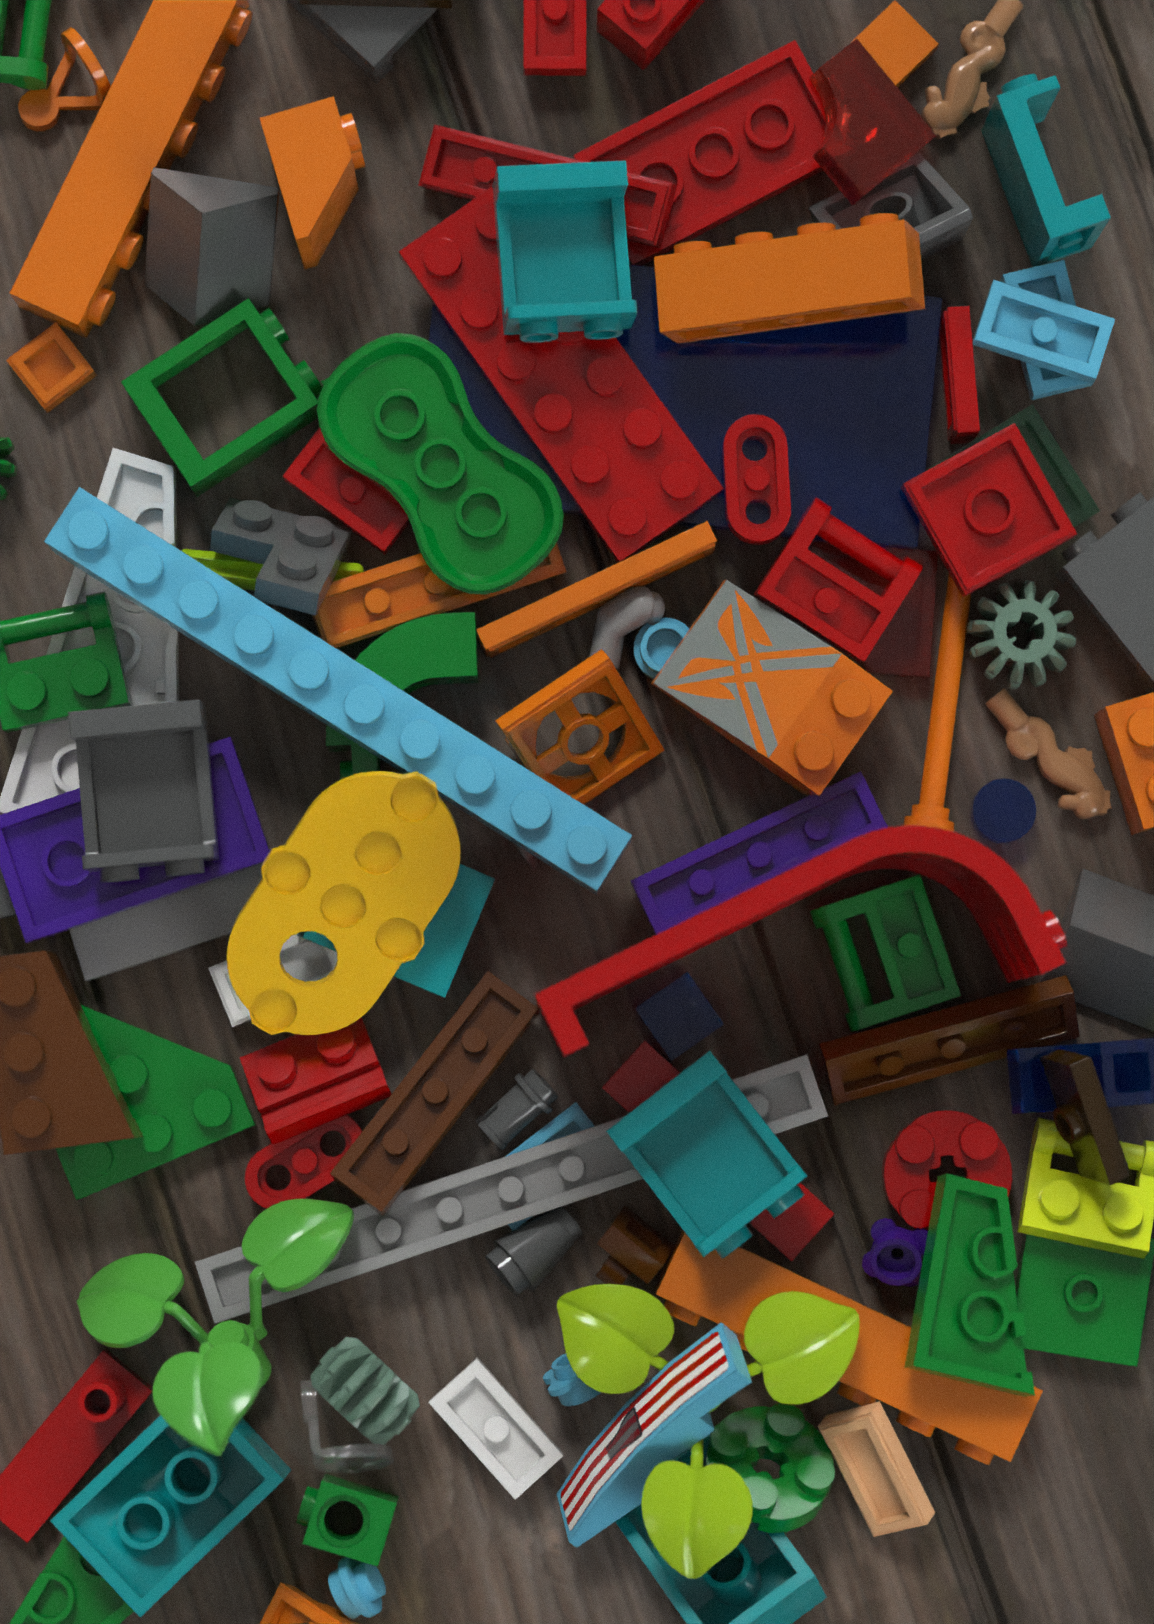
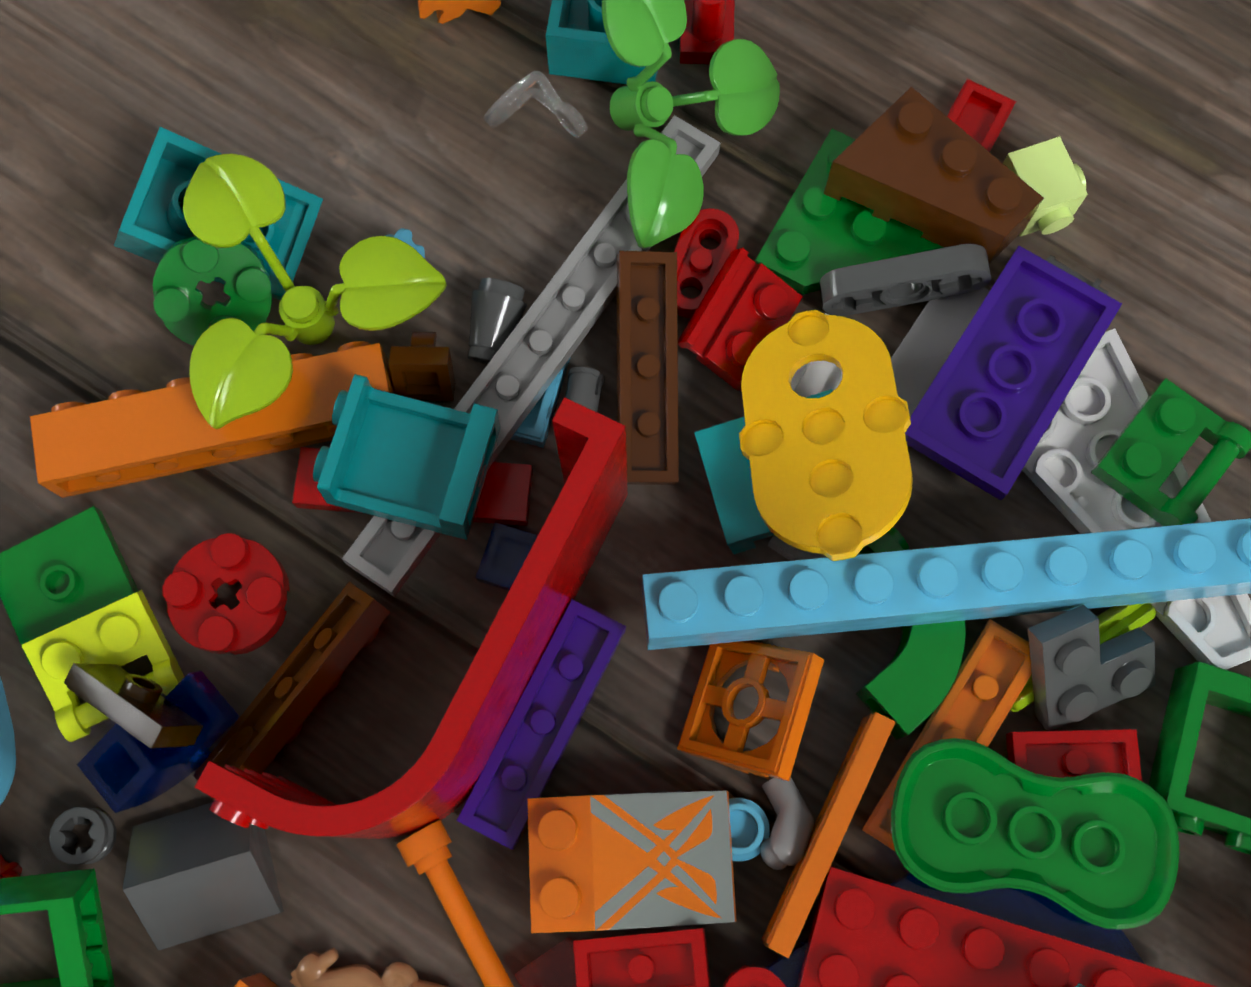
camera: 150 degrees right, 10 degrees down
(143, 995) = (905, 280): none -> dark grey beam
(145, 789) = (1033, 404): dark grey panel -> none
(357, 1588) = (447, 31): medium azure plate -> none
(365, 1390) = (537, 140): sand green gear -> none
(377, 1512) = (480, 45): green brick -> none
(496, 1428) = (429, 190): white plate -> none
(650, 1429) = (307, 247): slope -> none
(876, 1469) = (132, 348): light nougat tile -> none
(887, 1267) = (224, 508): dark purple plate -> none
(906, 947) = (366, 732): green plate -> none
(966, 1295) = (140, 505): green wing -> none
(1003, 811) = (376, 909): clear blue tile -> none

